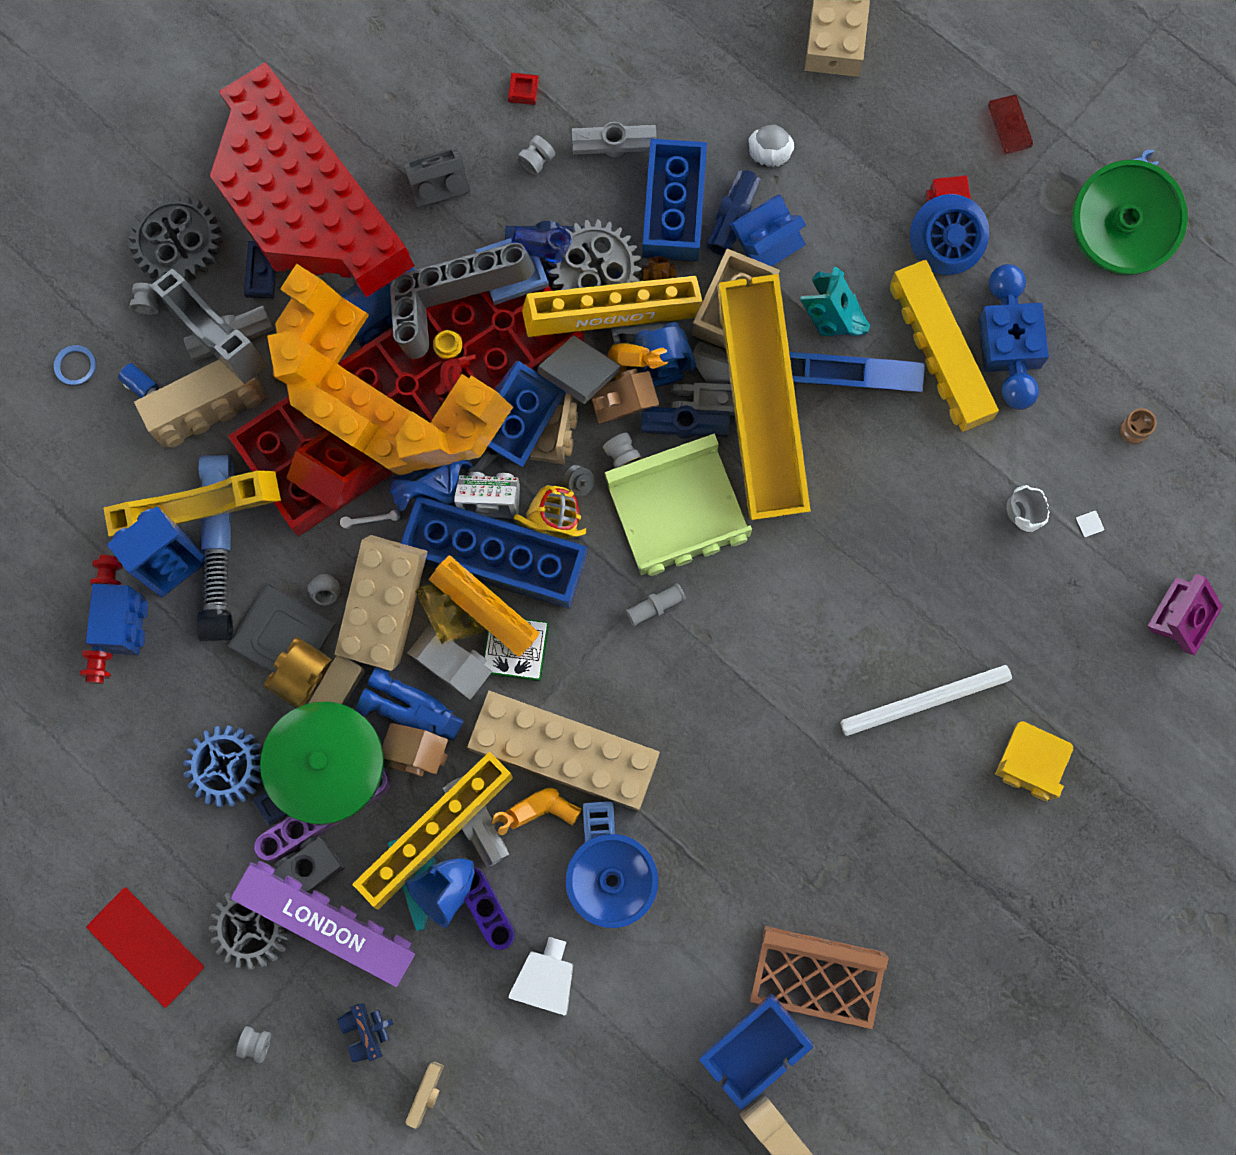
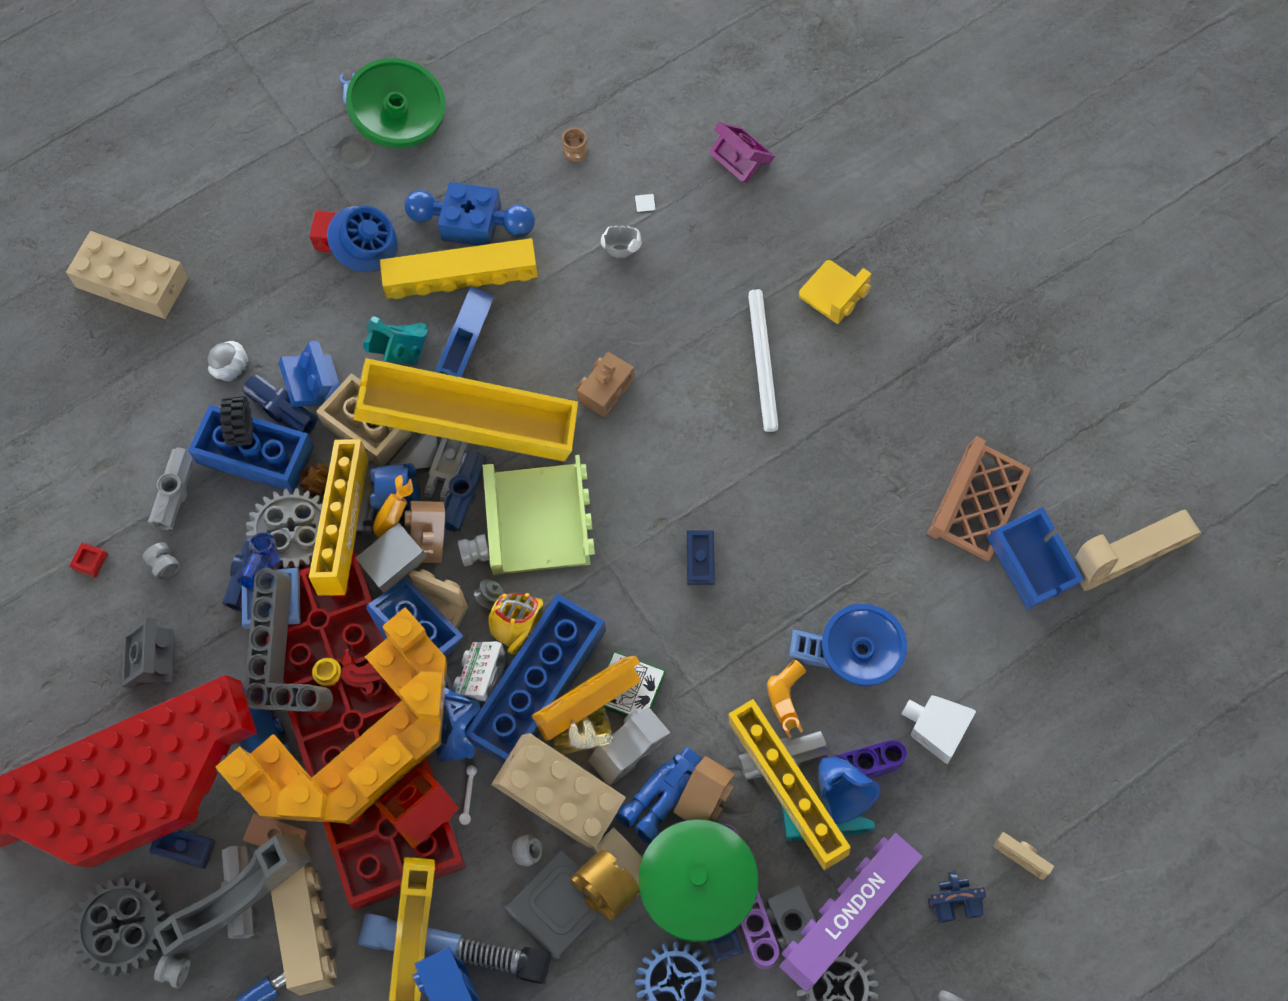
camera: 75 degrees left, 10 degrees down
(564, 751) = (736, 662): tan brick -> none
(655, 604) = (622, 555): light grey pin -> none
(673, 686) = (700, 557): none -> dark blue plate
(686, 172) = (236, 421): none -> black tyre
(847, 536) = (605, 384): none -> medium nougat brick
(1010, 124) = (278, 171): clear red plate -> none

